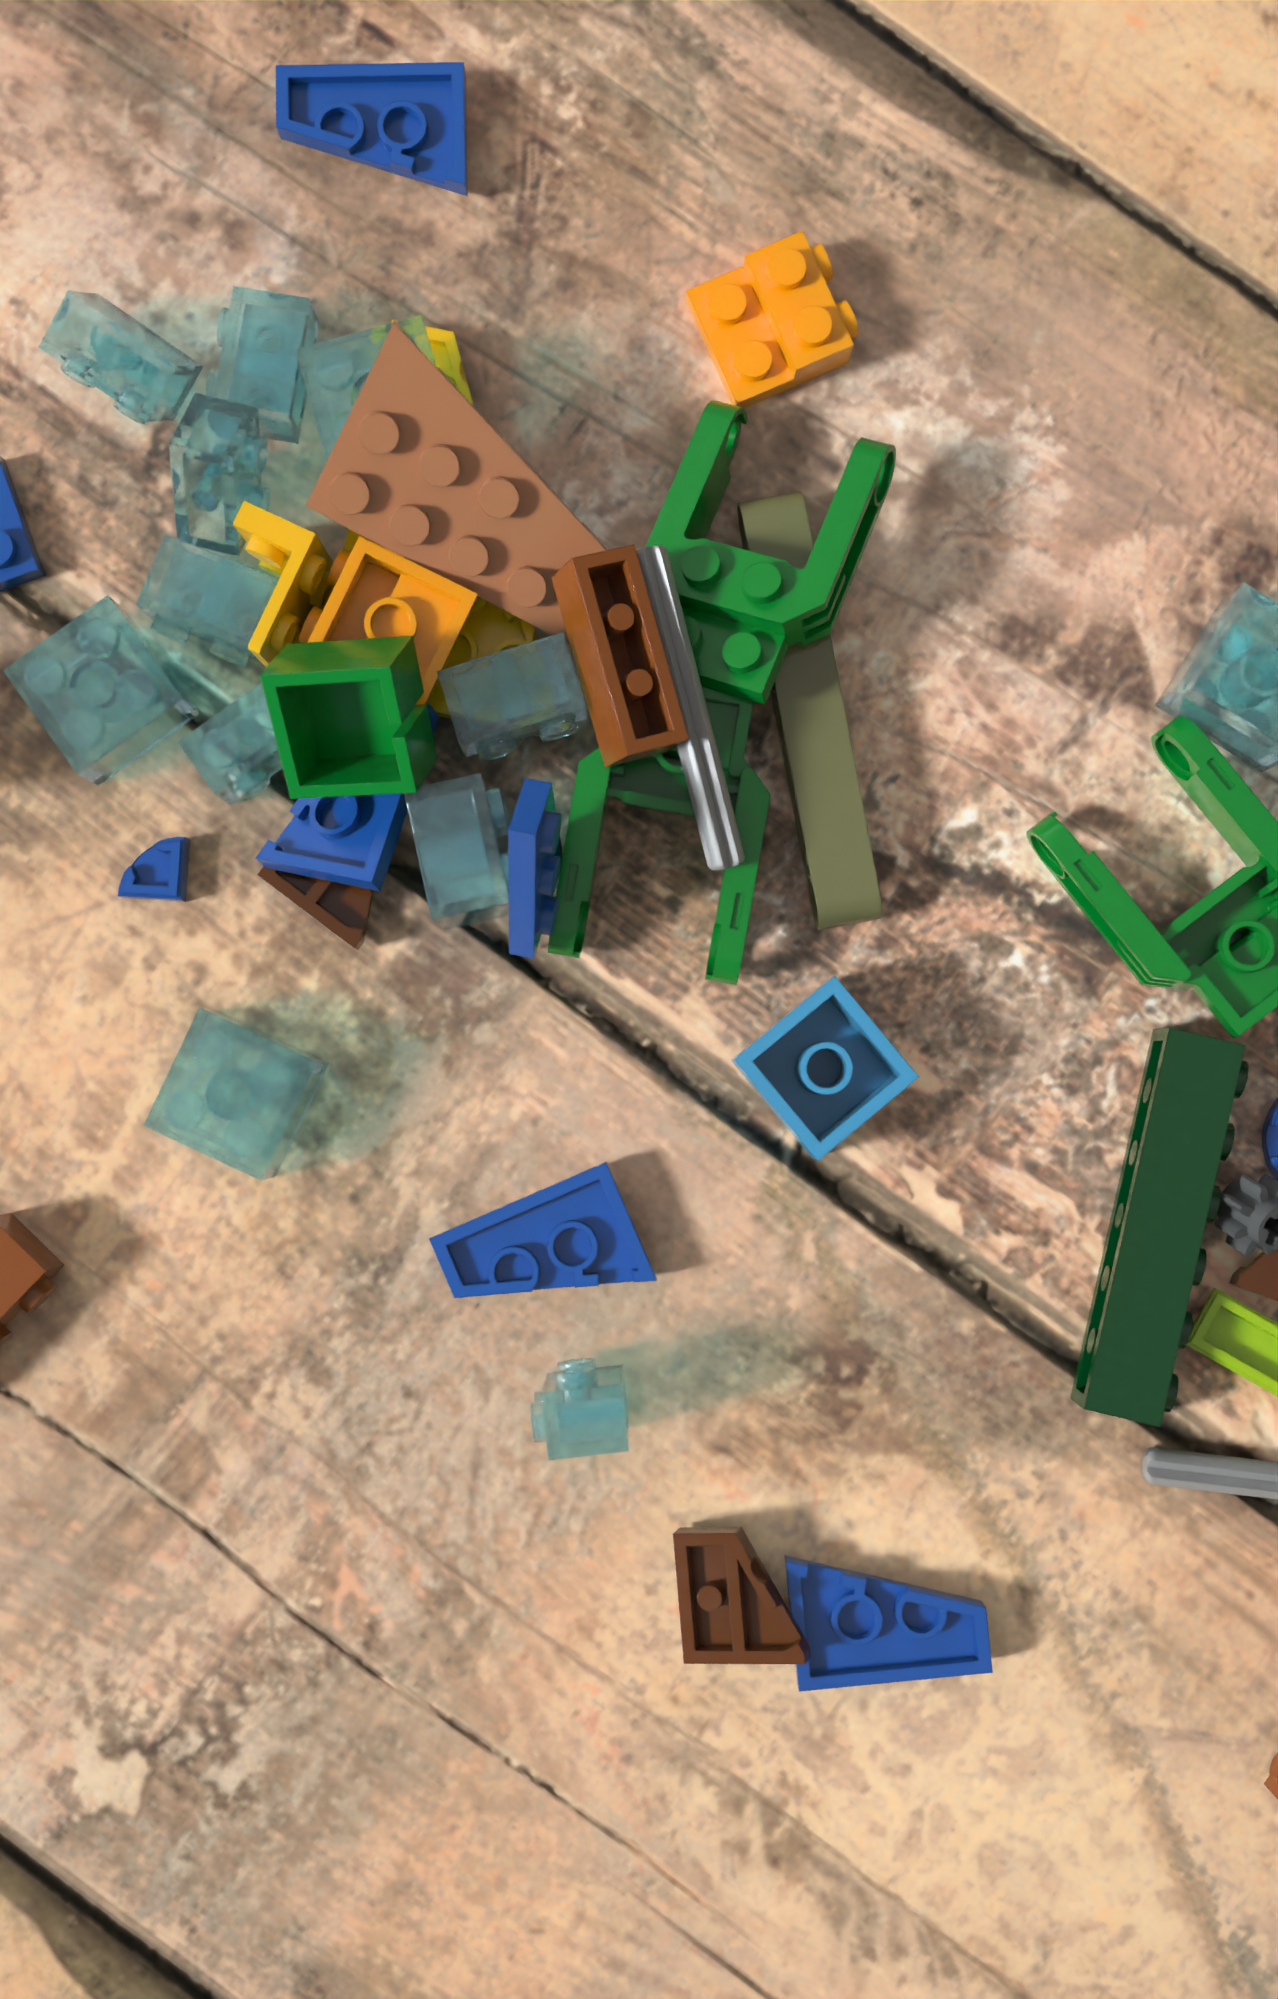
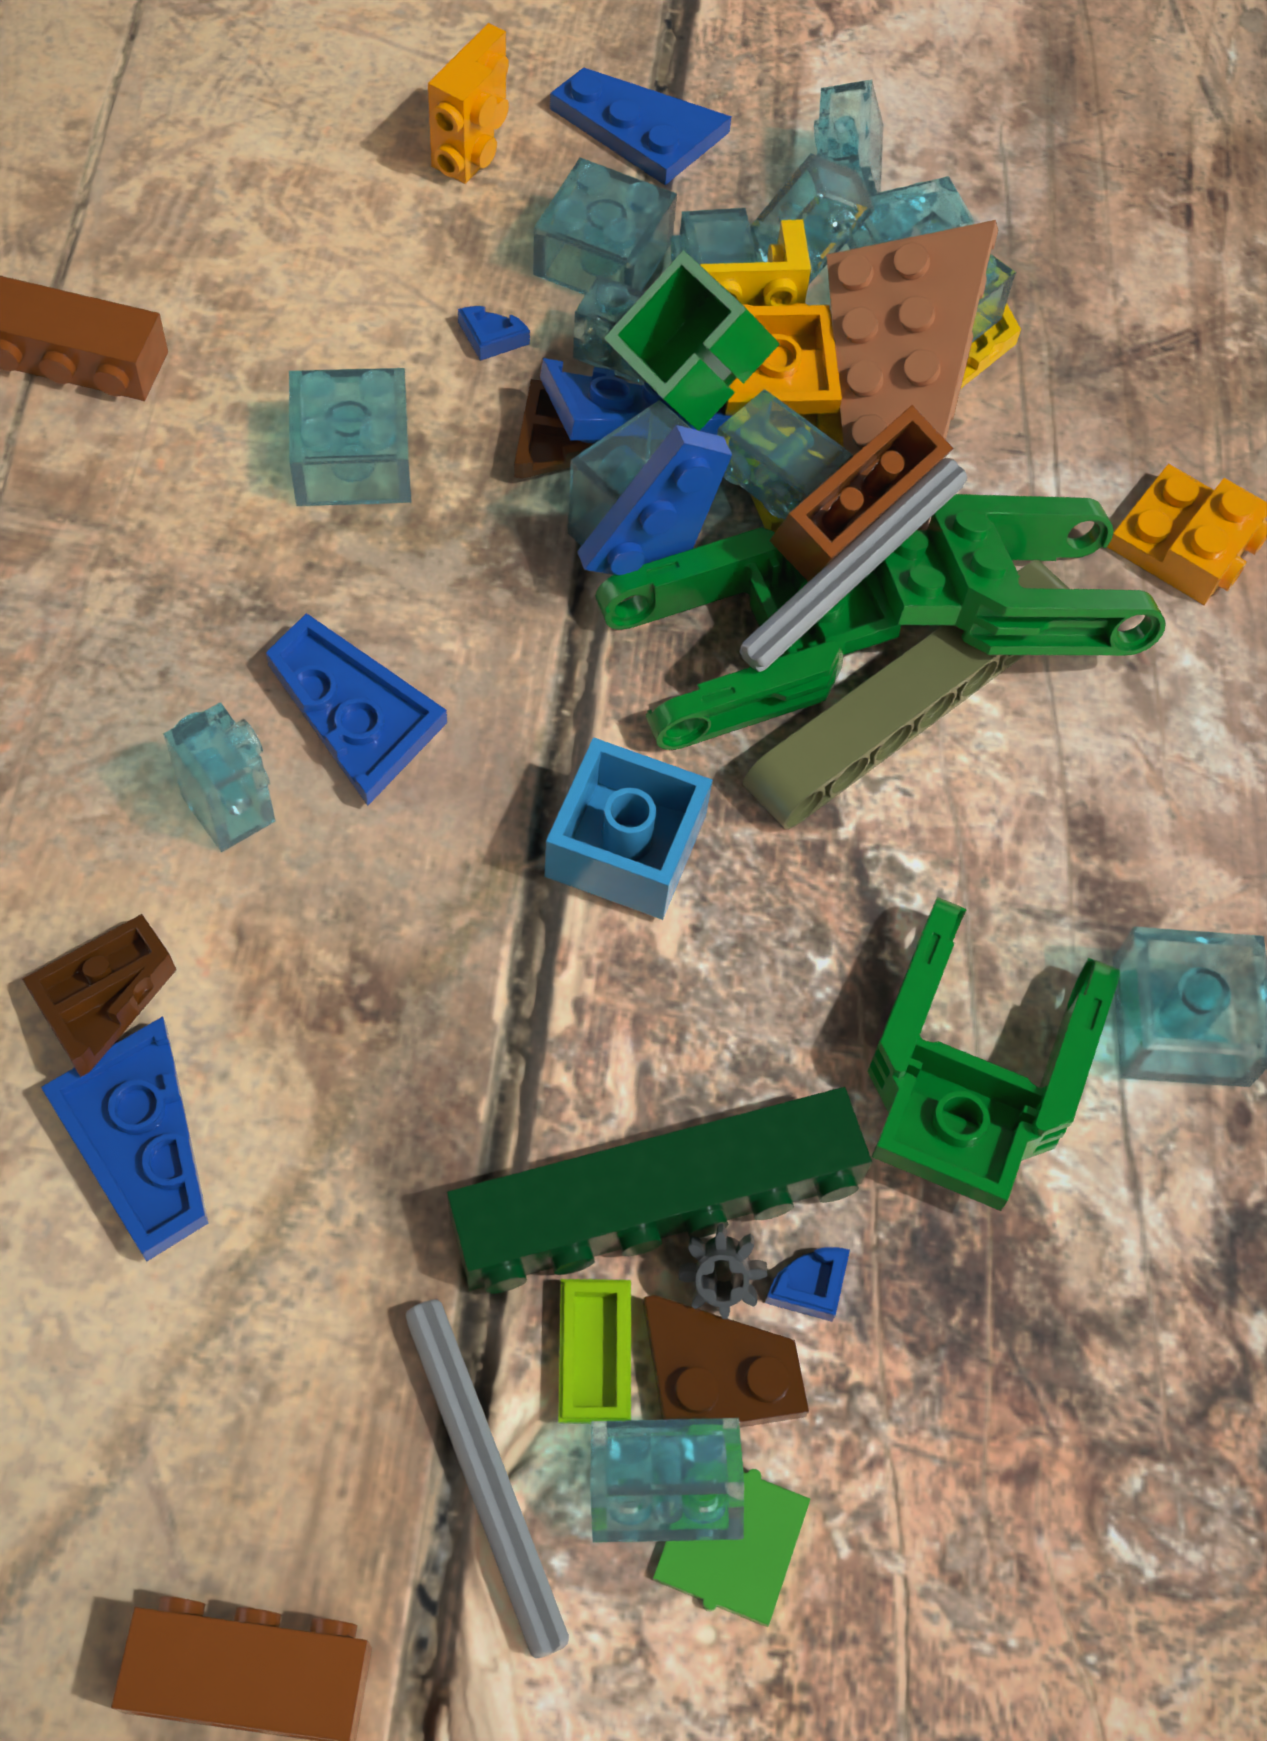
camera: 50 degrees right, 25 degrees down
(381, 116) = (1135, 232): blue wing -> none

